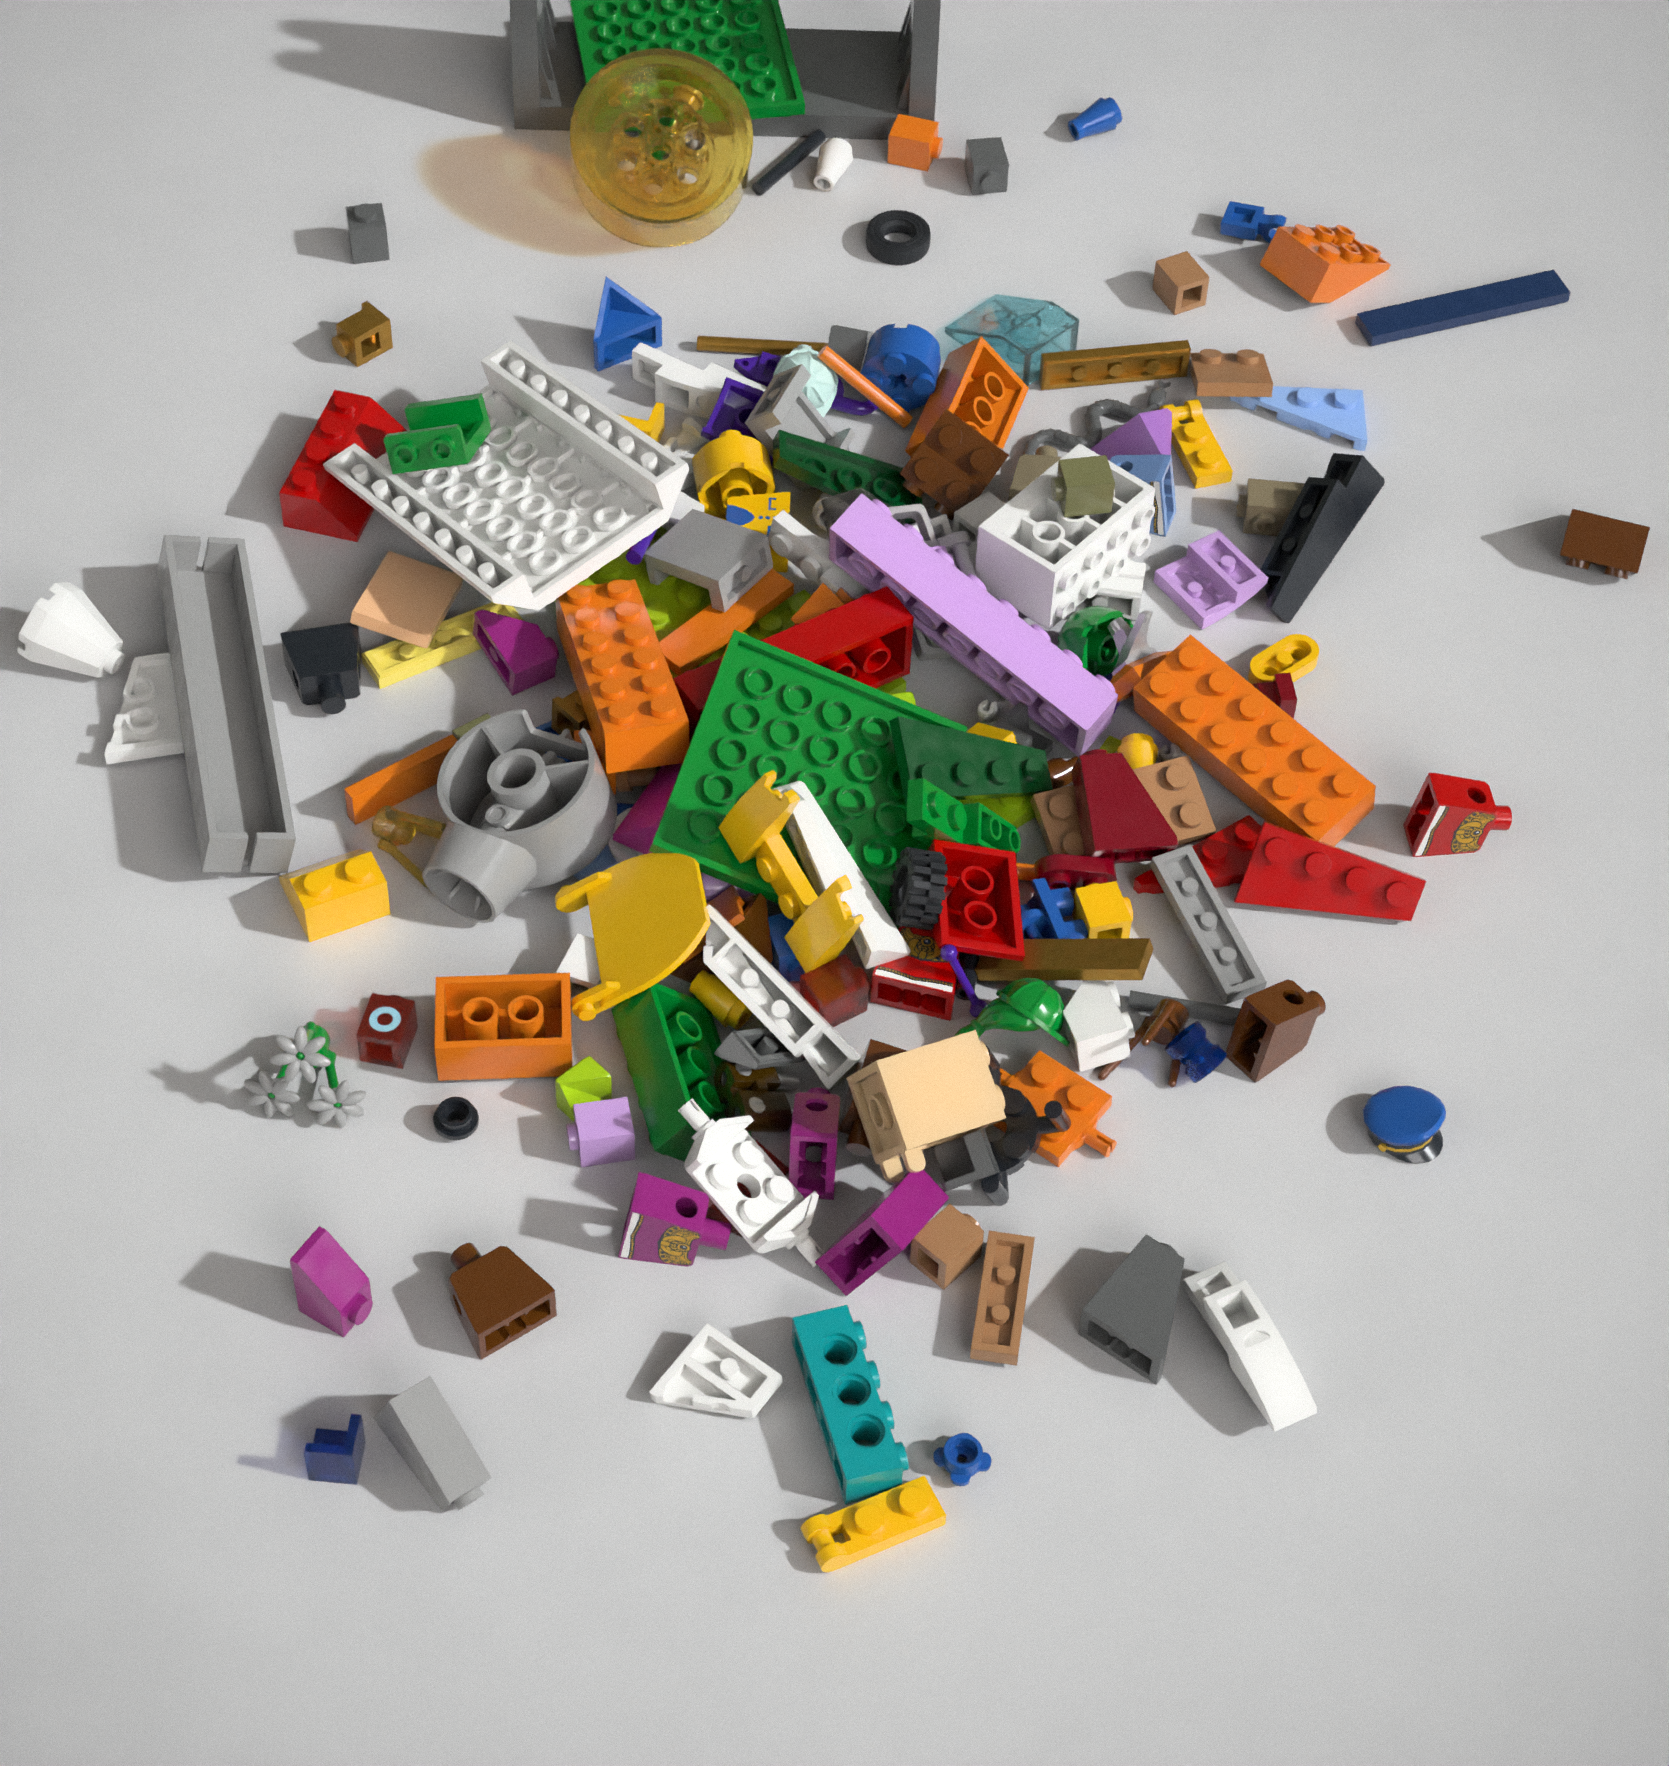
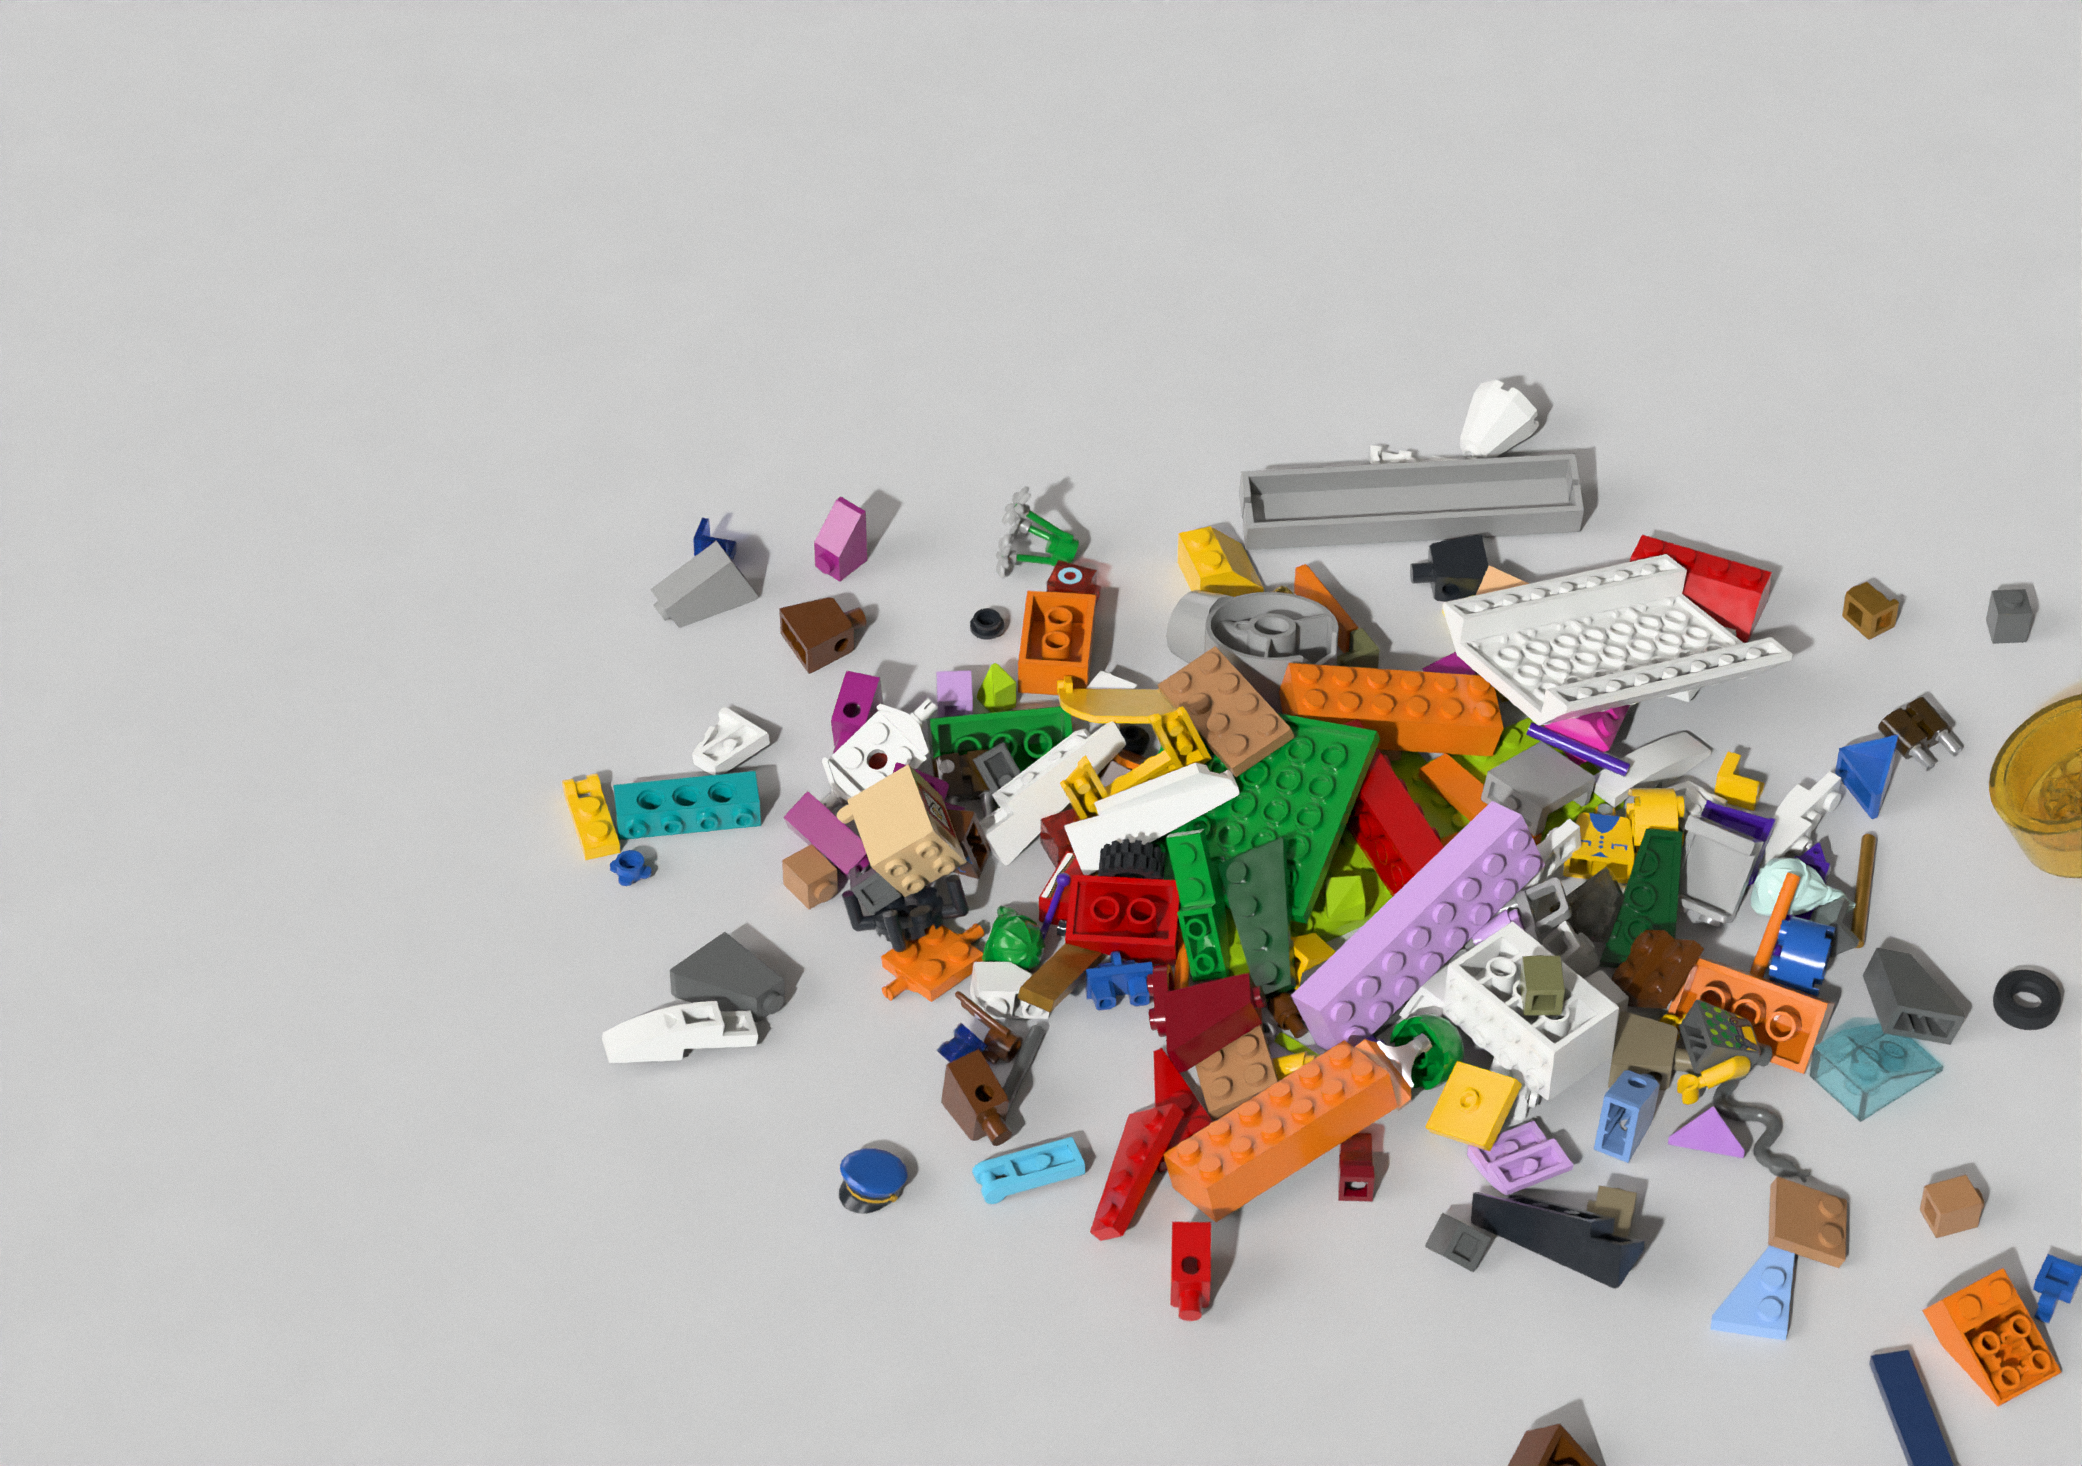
camera: 100 degrees right, 5 degrees down
(440, 434) = (1669, 609): green panel -> none
(540, 304) = (1919, 727): none -> dark brown piece
(687, 788) = (1226, 711): none -> medium nougat plate
(931, 301) = (1909, 999): none -> dark grey slope
(1002, 1298) = (760, 905): medium nougat plate -> none
(1038, 424) = (1718, 1047): none -> torso
(1103, 910) = (1119, 1015): yellow brick -> none
(1114, 364) = (1822, 1130): pearl gold tile -> none
(1174, 597) = (1473, 1106): none -> yellow plate
(1198, 446) = (1716, 1187): yellow plate -> none
(1208, 924) = (1097, 1080): light grey plate -> none
(1282, 659) = (1410, 1196): yellow plate -> none
(1333, 620) = (1457, 1242): none -> dark grey panel
(1344, 979) = (1028, 1169): none -> medium azure plate

